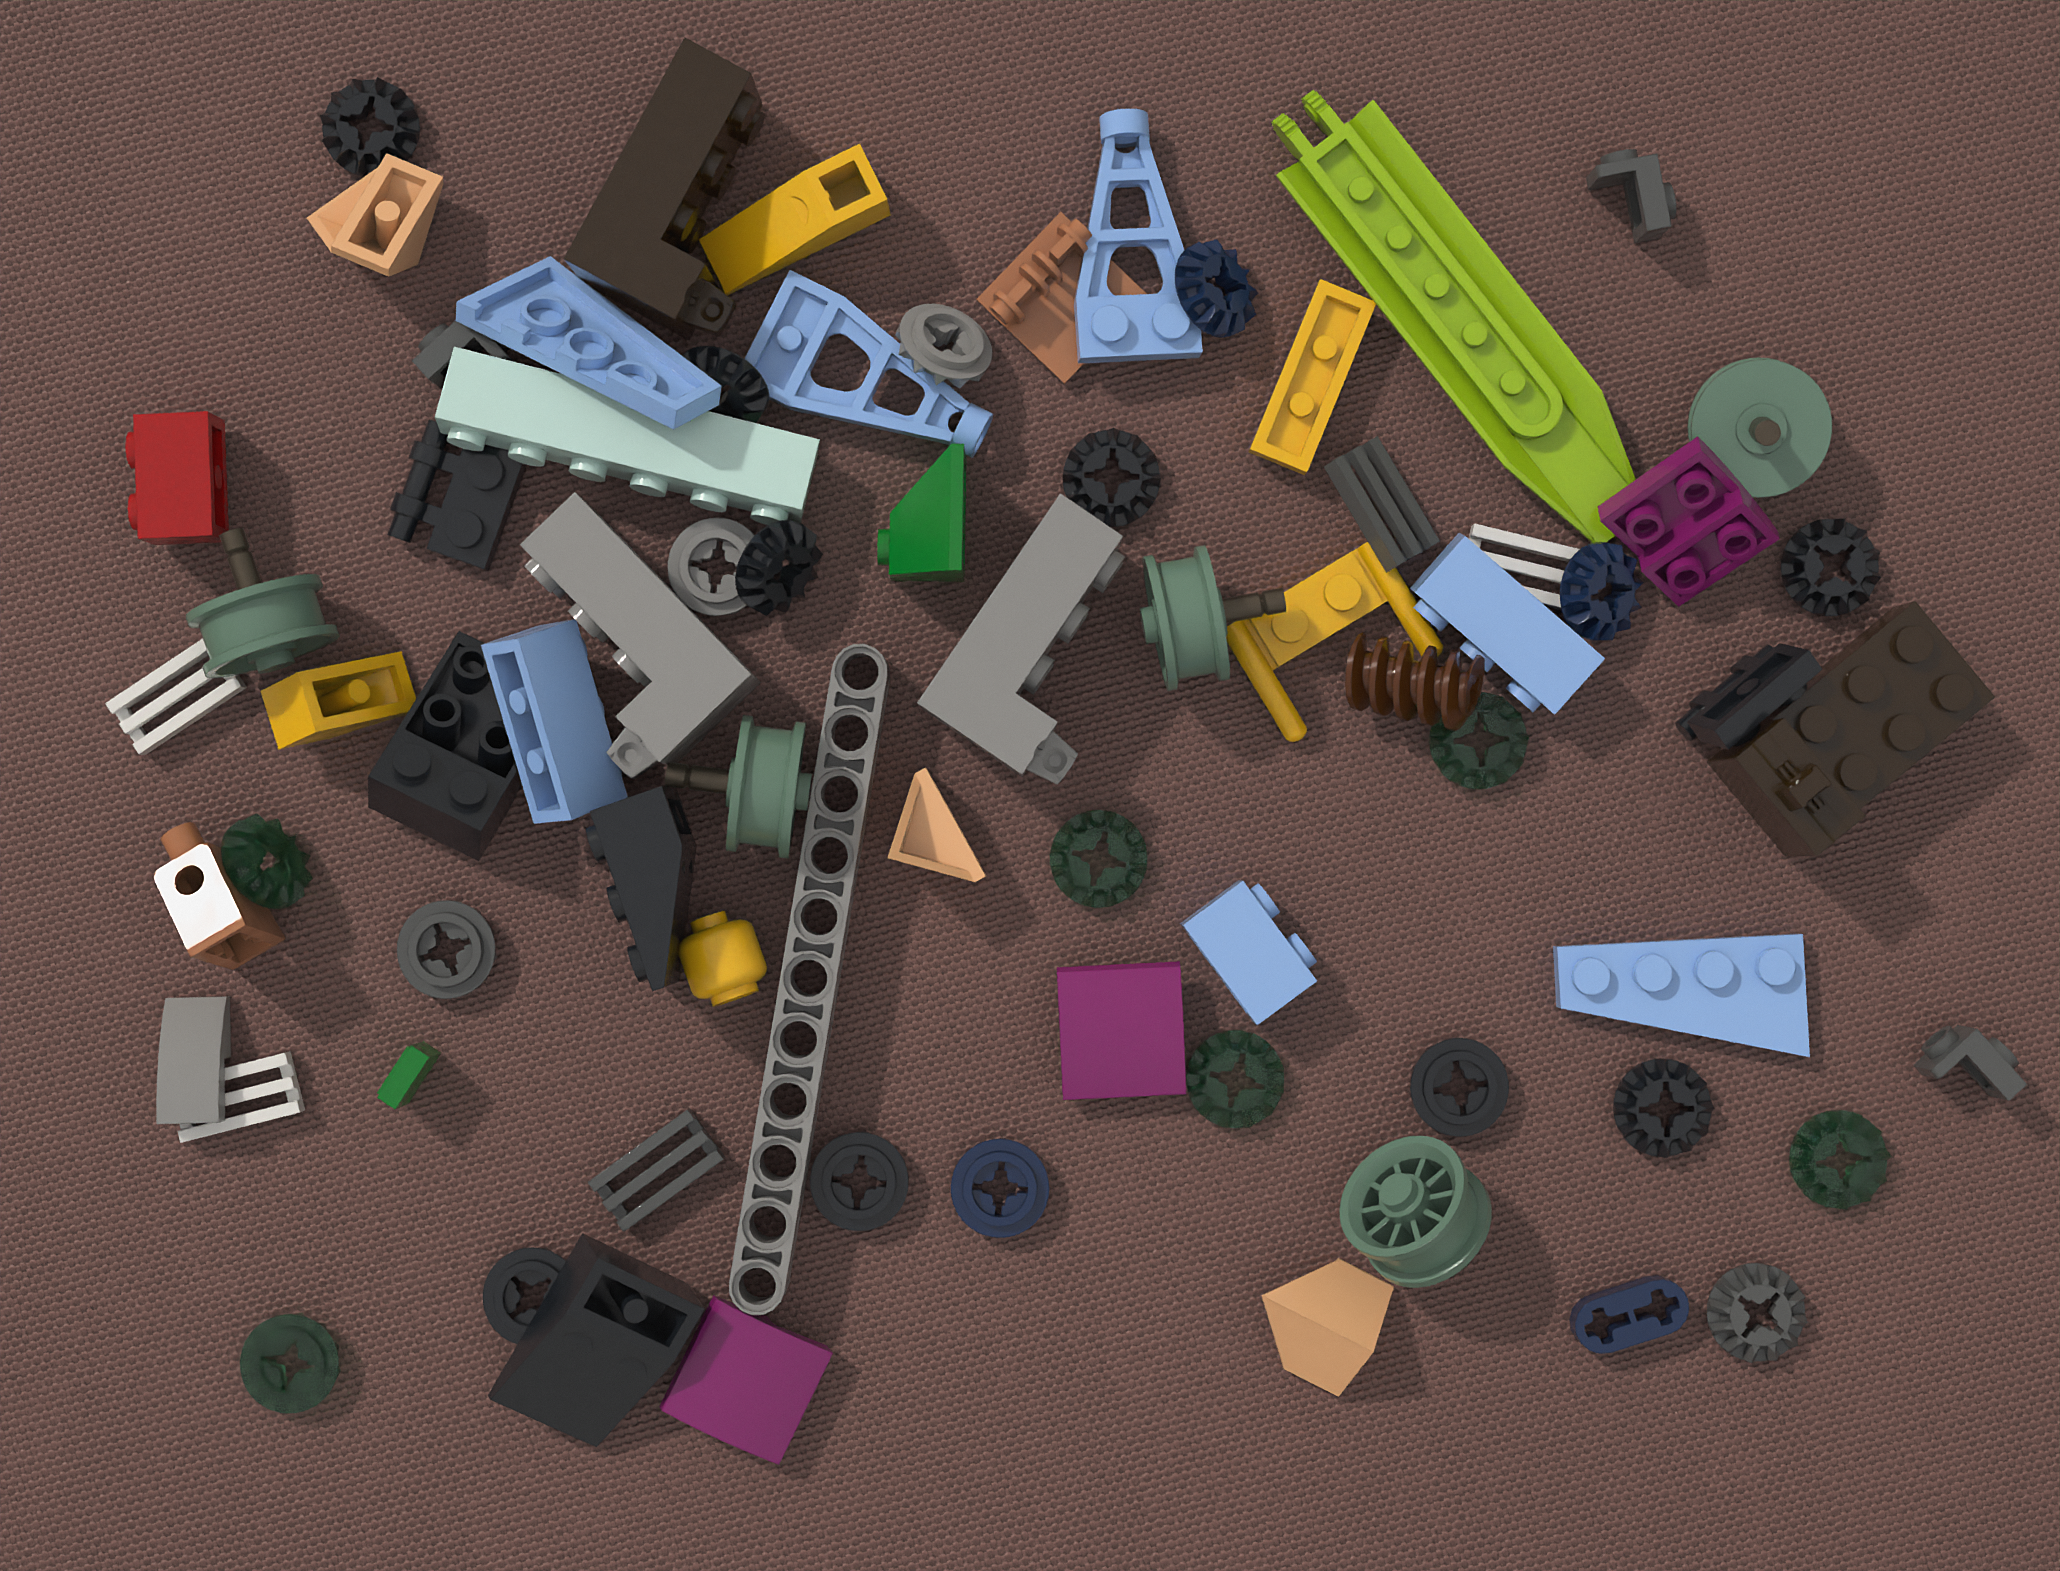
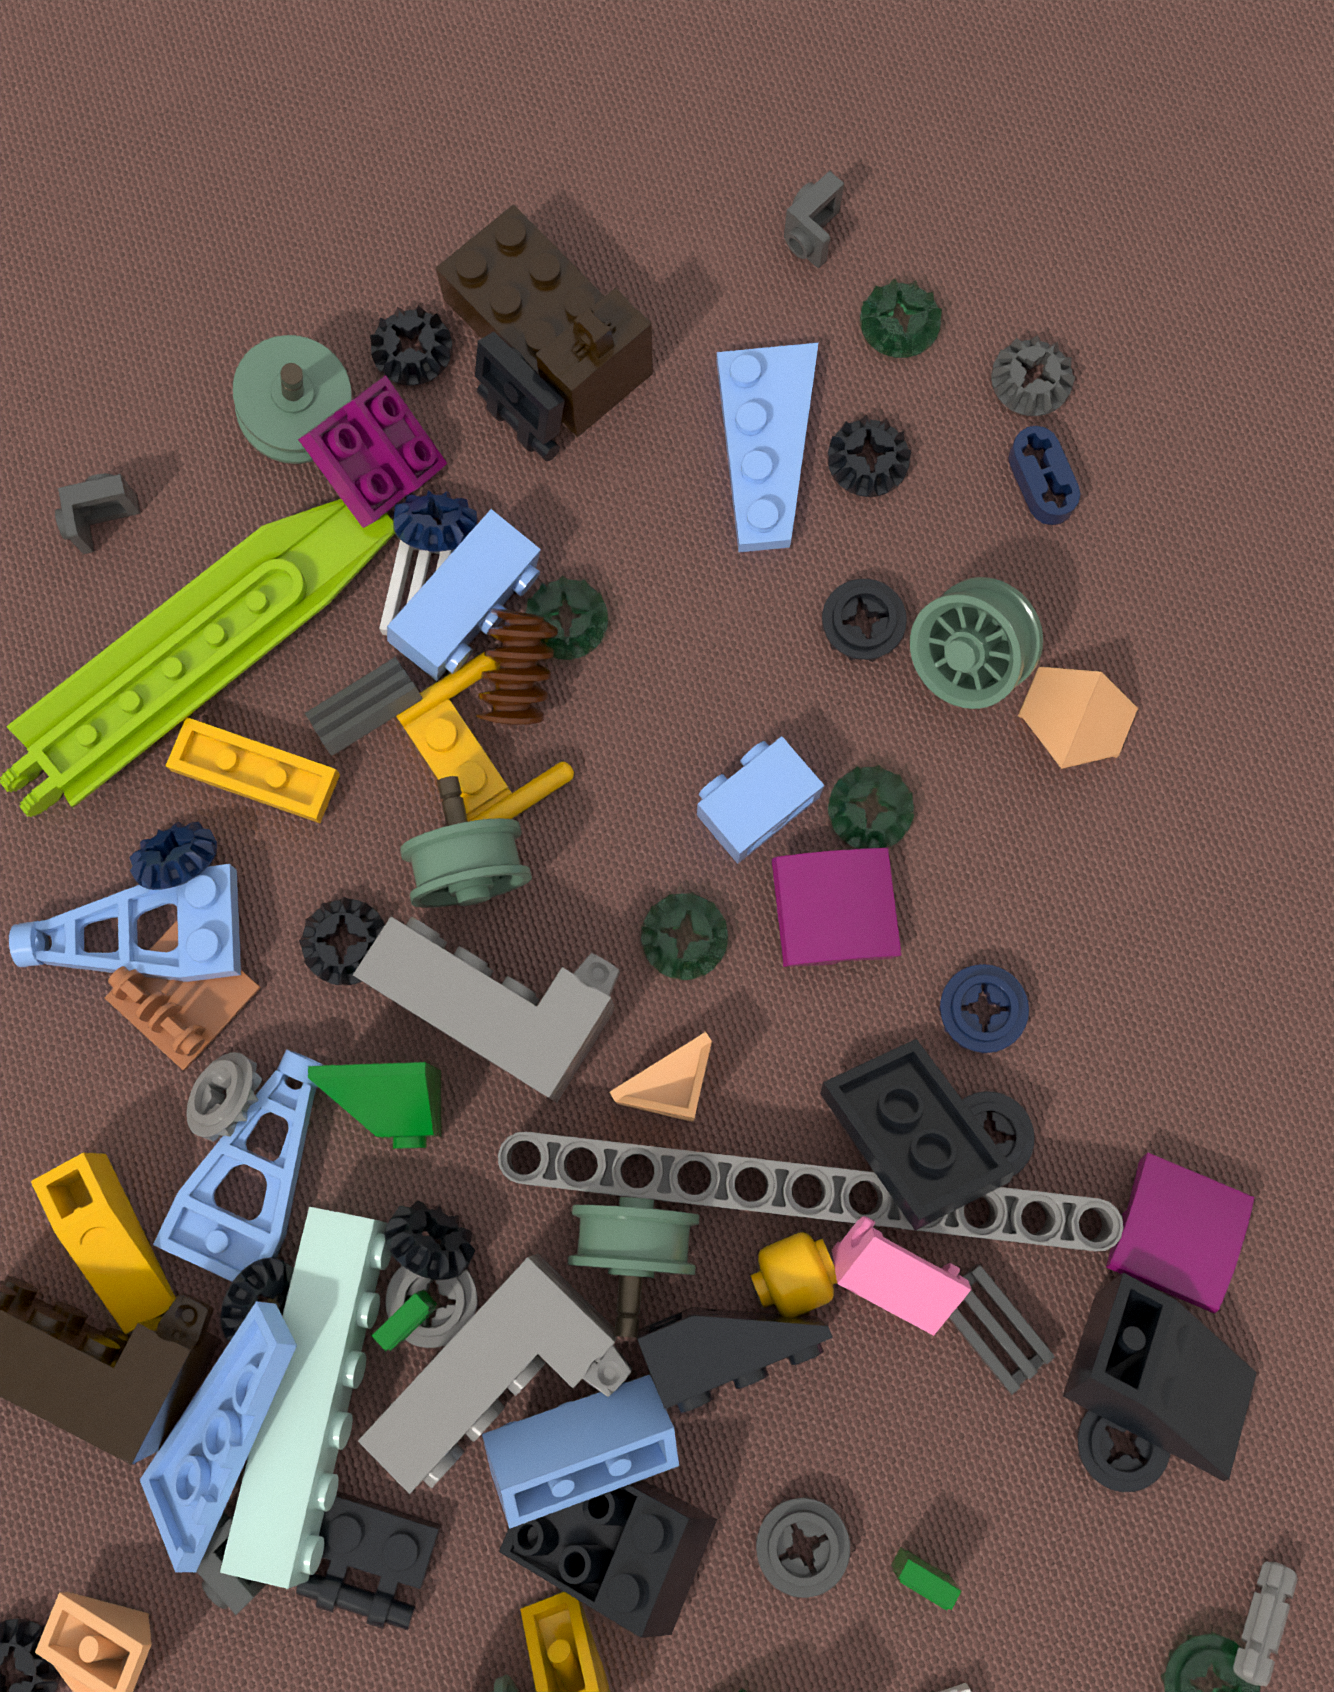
camera: 90 degrees left, 10 degrees down
(346, 1425) = (1265, 1623): none -> light grey axle
(695, 540) = (405, 1320): none -> green tile
(711, 1066) = (897, 1278): none -> bright pink hinge
(864, 1099) = (916, 1133): none -> black plate

